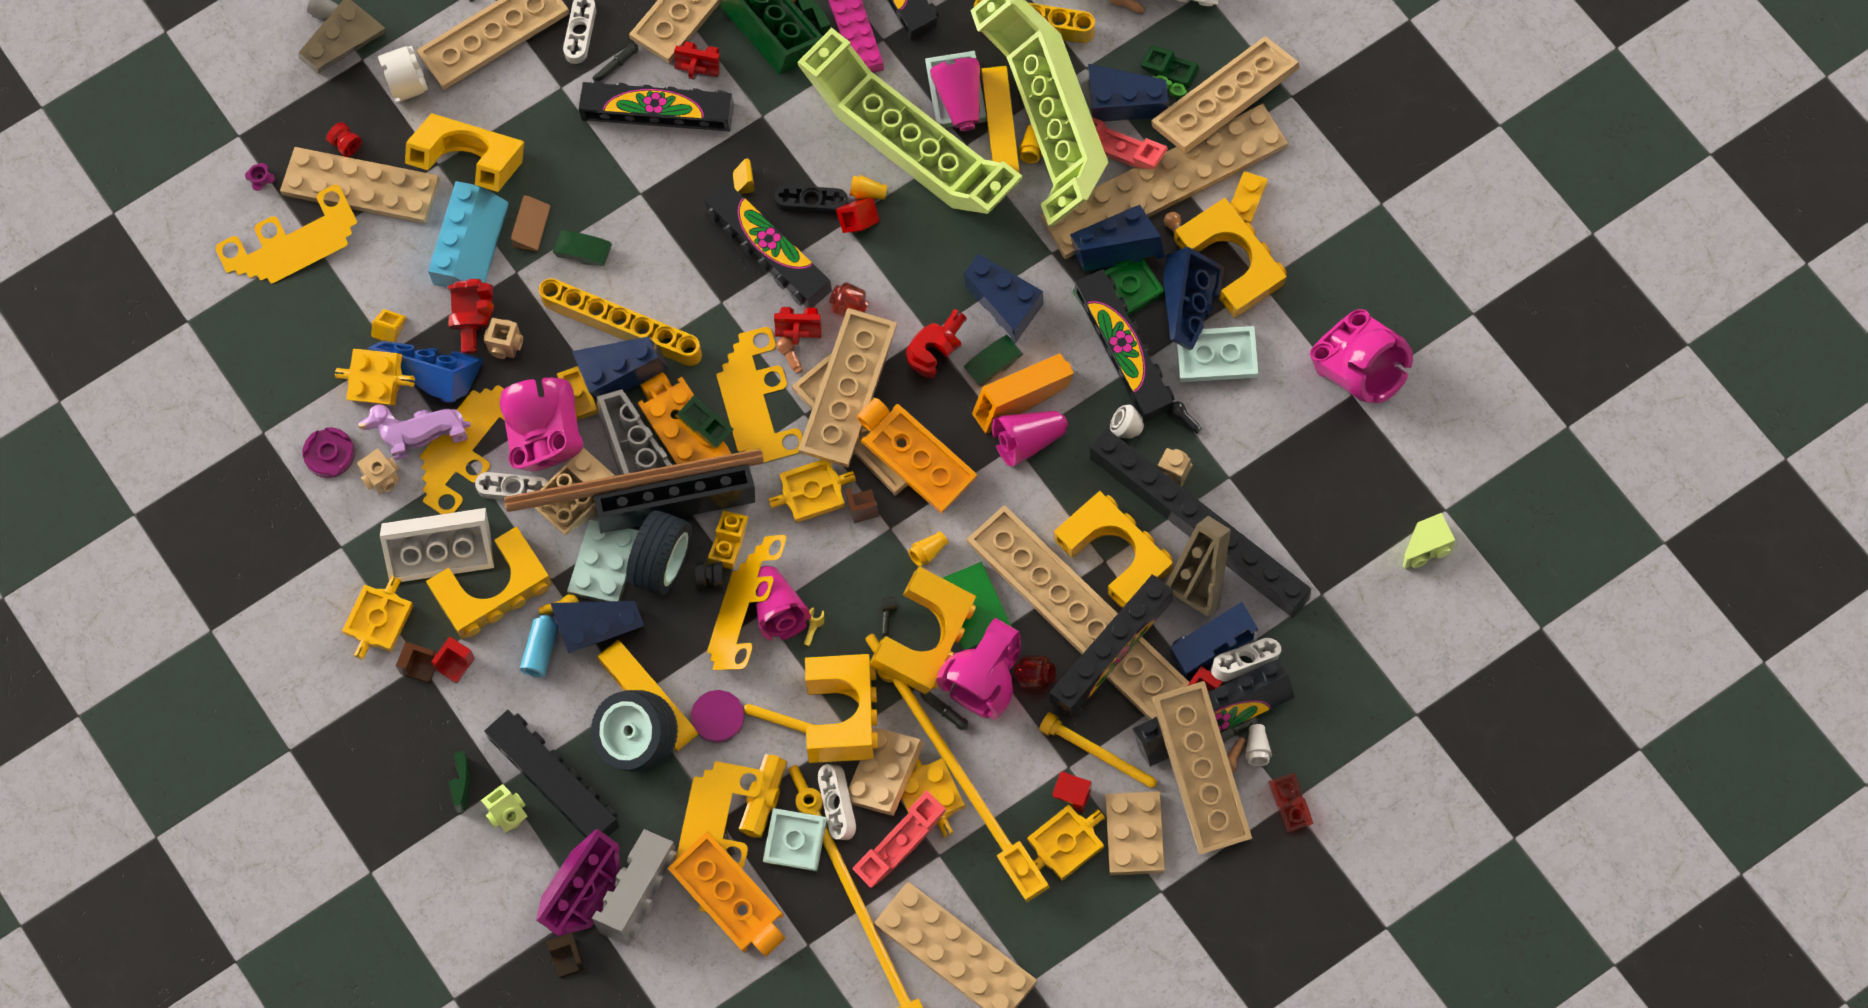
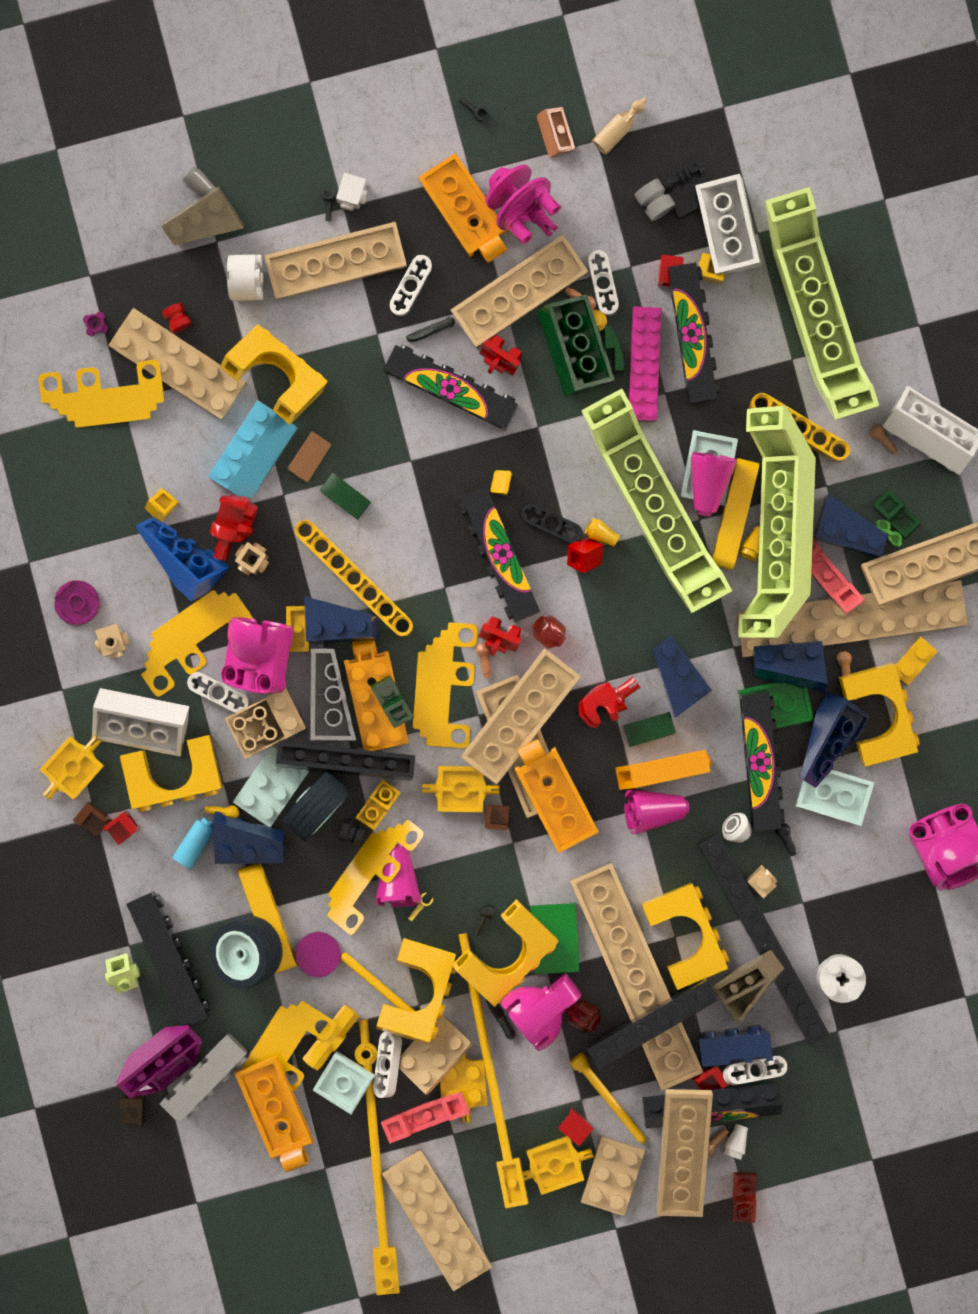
camera: 15 degrees right, 20 degrees up
(374, 377) = (134, 553): yellow plate -> none
(415, 431) = (153, 614): lavender animal -> none
(461, 787) = (92, 941): dark green slope -> none
(631, 480) = (315, 737): medium nougat axle -> none
(926, 549) = (535, 876): yellow cone -> none
(1302, 518) = (849, 988): none -> white brick
(1429, 540) = (939, 1022): yellowish green slope -> none

